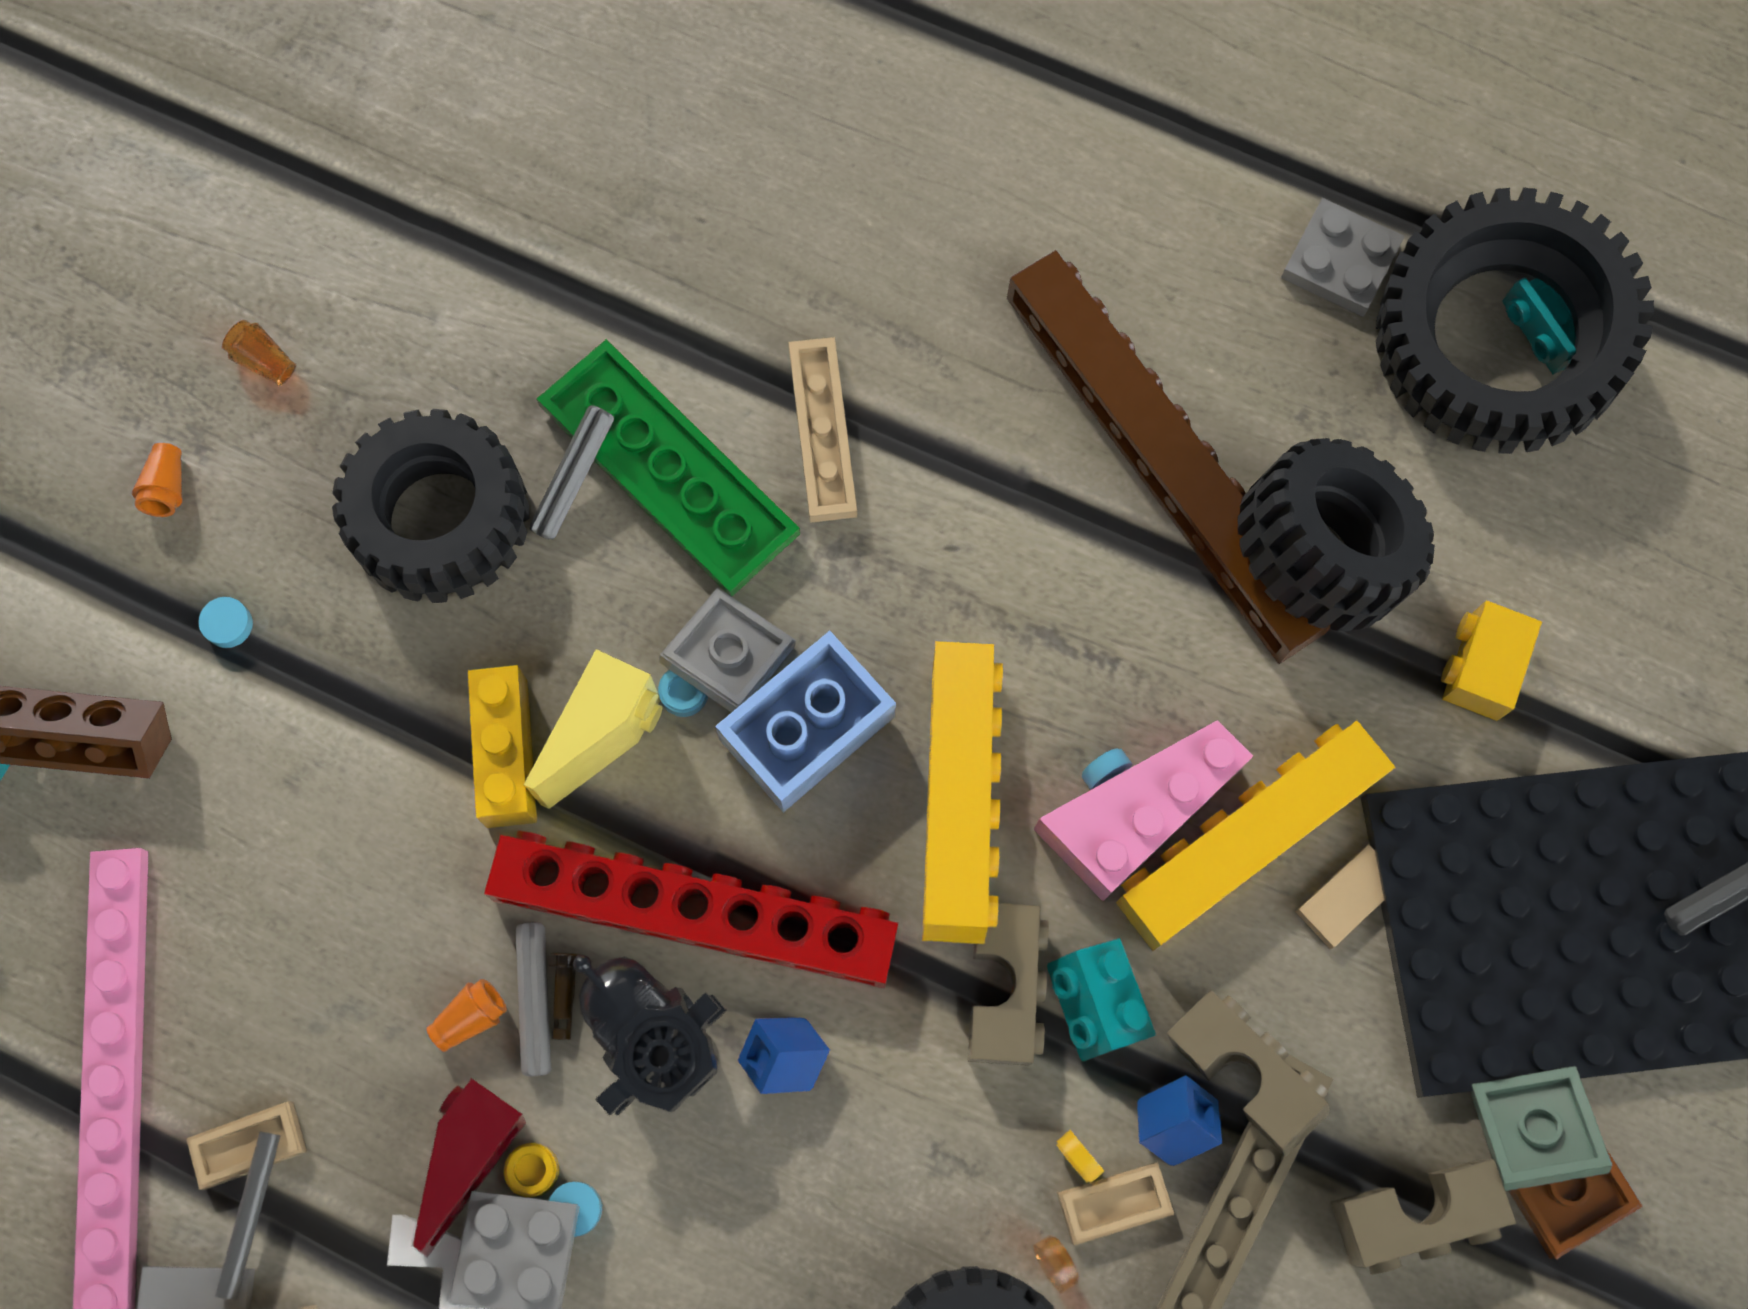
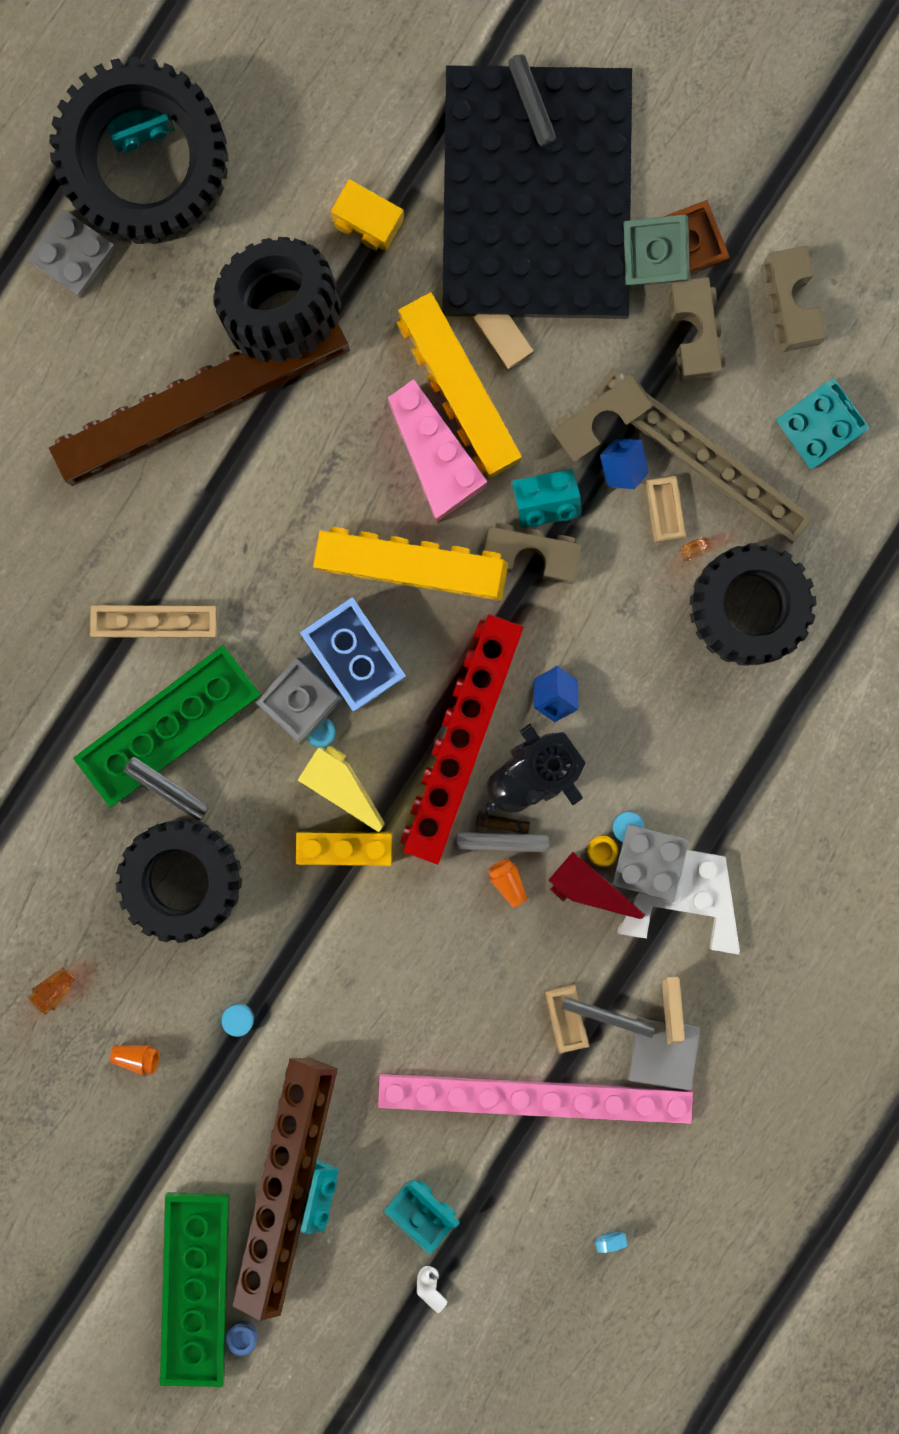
camera: 80 degrees left, 15 degrees up
(1079, 1157) = (637, 526): yellow tile -> none
(1106, 767) = (406, 472): medium azure tile -> none

